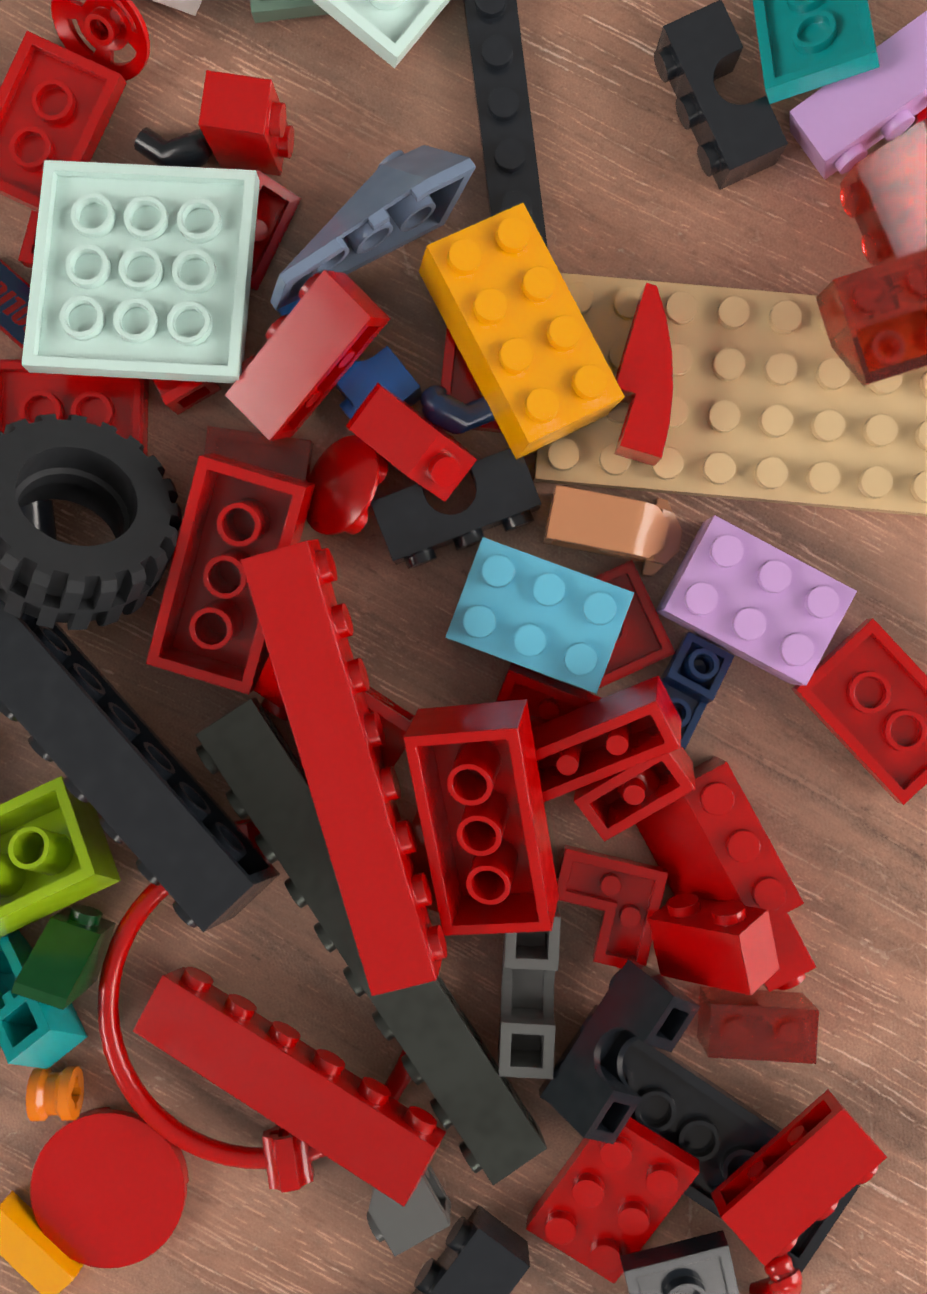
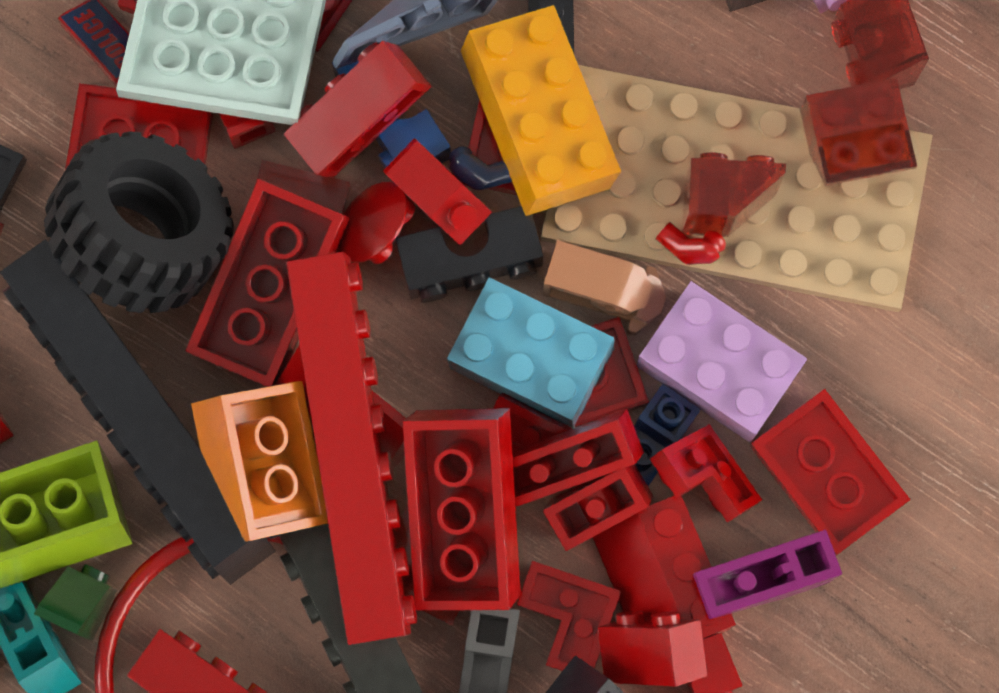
camera: 10 degrees right, 10 degrees down
(245, 795) = (263, 458): none -> orange slope
(646, 381) = (642, 164): red slope -> none
(713, 477) = (692, 250): none -> red arm
(747, 408) = (727, 192): none -> clear red slope
(748, 720) = (706, 461): none -> red plate
(836, 843) = (768, 575): none -> magenta slope

